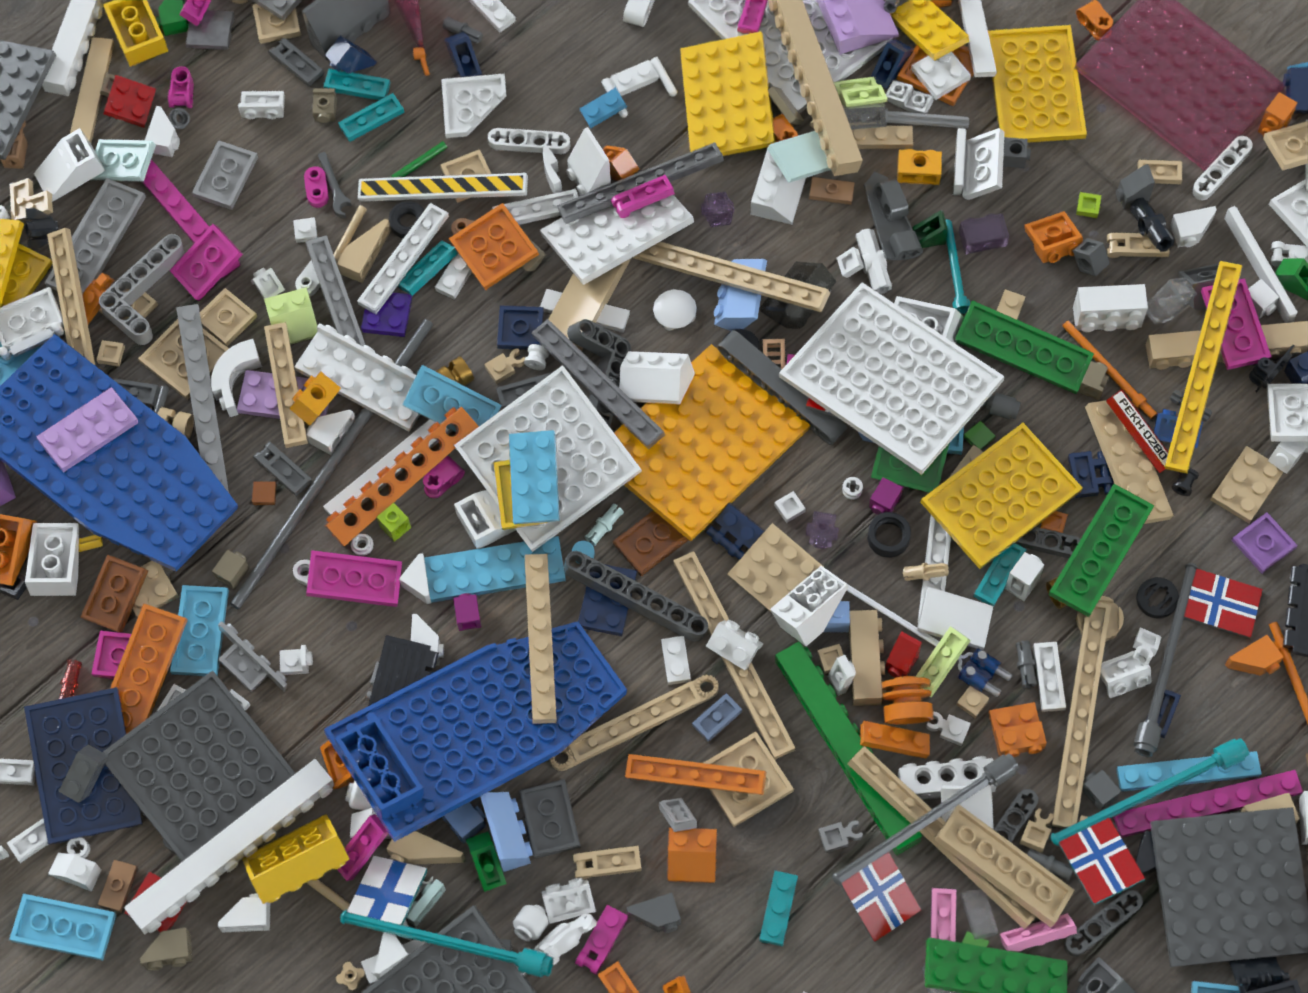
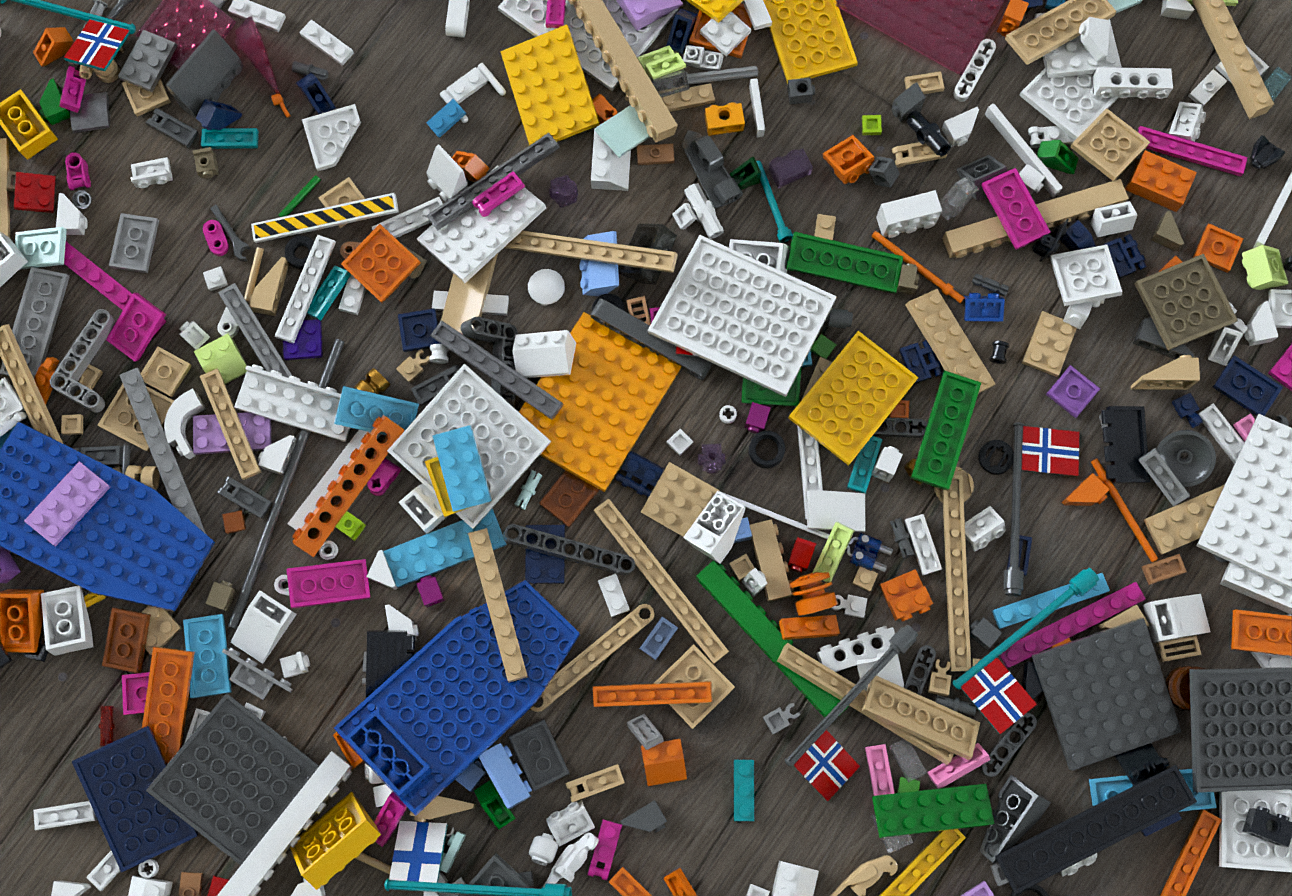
camera: 15 degrees left, 10 degrees up
(83, 773) = (136, 810): dark grey brick -> none
(269, 610) = (262, 626): none -> white slope
(315, 398) = (255, 442): light orange brick -> none
(371, 117) = (248, 165): teal plate -> none
(529, 138) = (389, 160): white beam -> none
(551, 169) = (413, 180): white slope -> none
(584, 547) = (516, 516): medium azure tile -> none
(734, 643) = (660, 573): white bracket -> none
(785, 105) = (601, 87): dark tan tile -> none
(925, 571) = (803, 476): tan axle -> none
(983, 164) = (778, 106): white plate -> none
(1139, 429) = (955, 317): tile -> none
(1146, 644) = (996, 500): white plate -> none
(1203, 367) = (997, 252): yellow plate -> none

